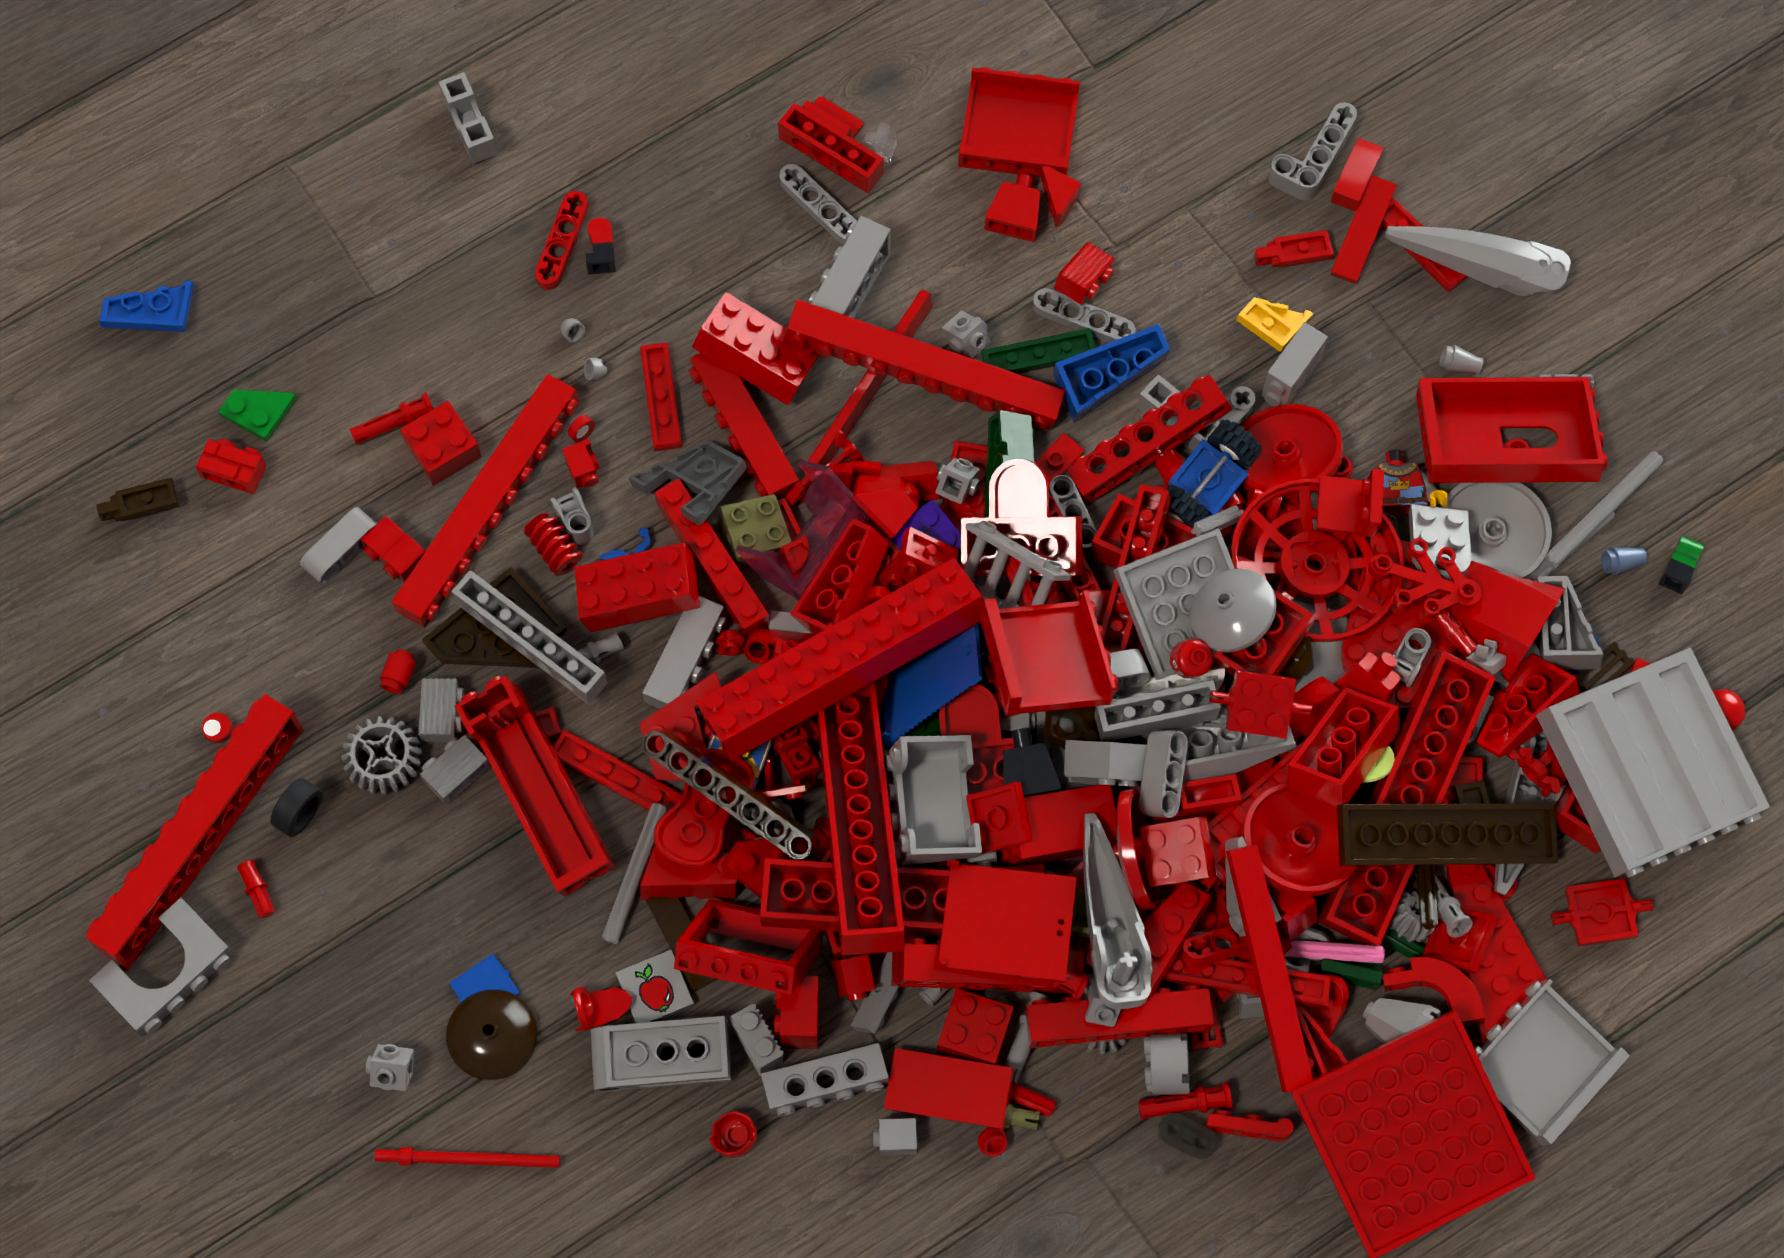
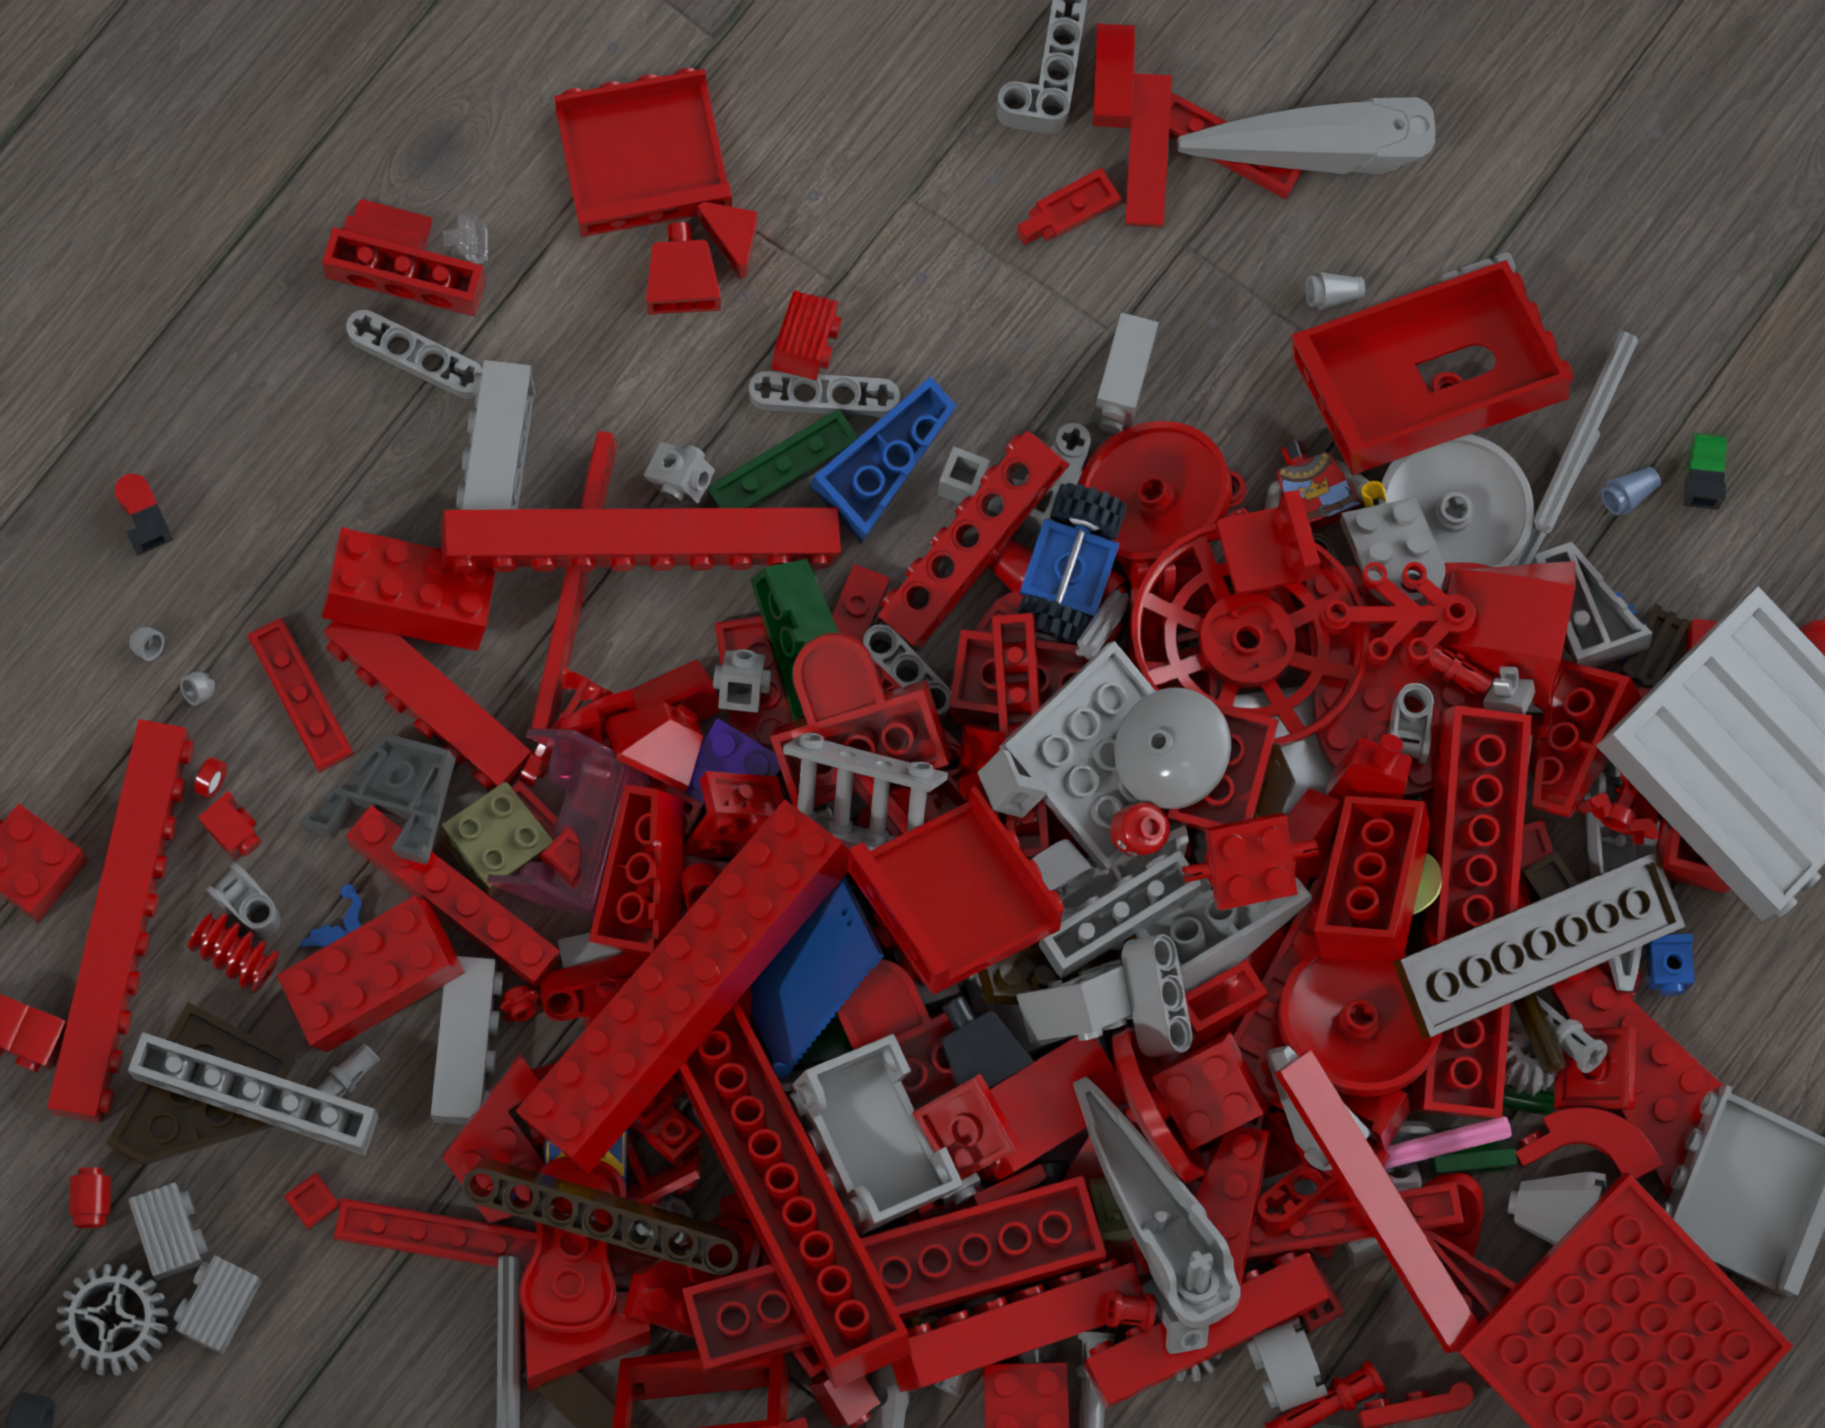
camera: 25 degrees left, 5 degrees up
(536, 784) = (335, 1288): red brick -> none
(562, 240) = (88, 520): red beam -> none
(1007, 922) = (1027, 1263): red door -> none
(1102, 572) = (979, 745): none -> red slope
(1109, 600) = (1008, 789): none -> light grey panel
(1272, 321) = (1074, 317): yellow wing -> none
(1543, 875) = (1662, 977): none -> blue brick
(1601, 912) = (1758, 969): red plate -> none

